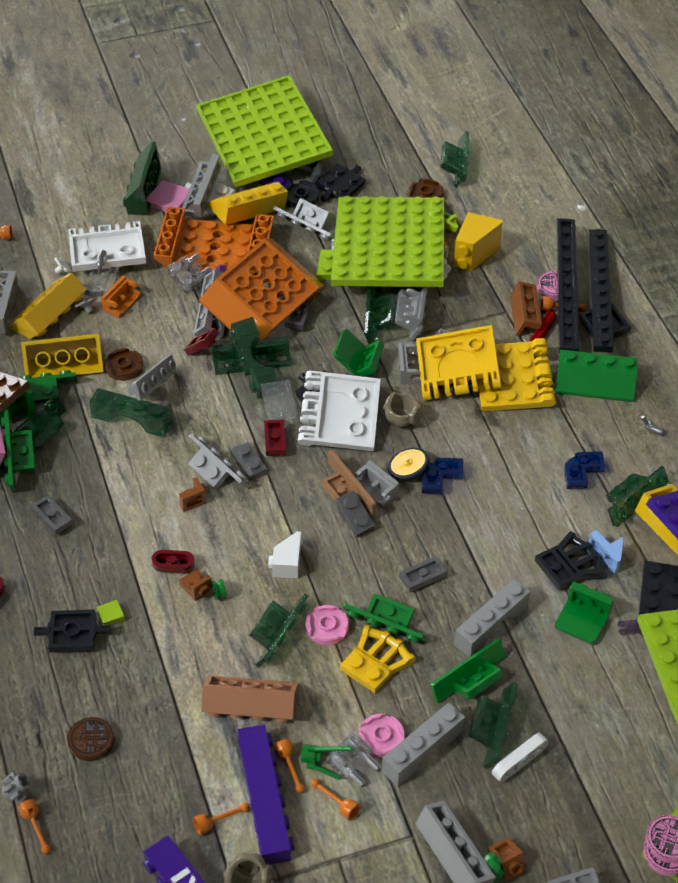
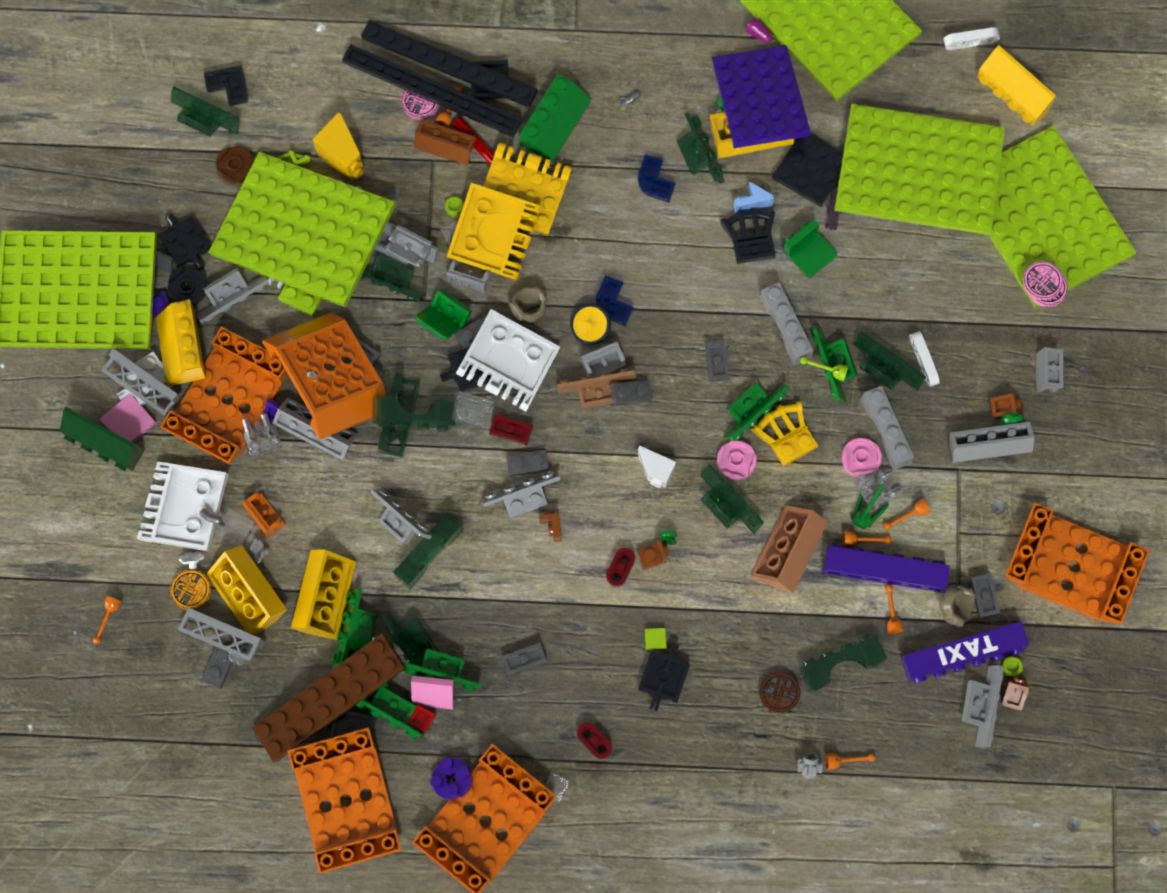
camera: 65 degrees left, 25 degrees up
(36, 275) = (190, 589): none -> tile
(122, 765) = (866, 653): none -> clear green arch
(123, 364) = (354, 539): reddish brown tile -> none
(201, 341) = (365, 455): dark red plate -> none
(461, 675) = (838, 371): none -> lime hinge
(494, 167) = (229, 79): none -> black plate

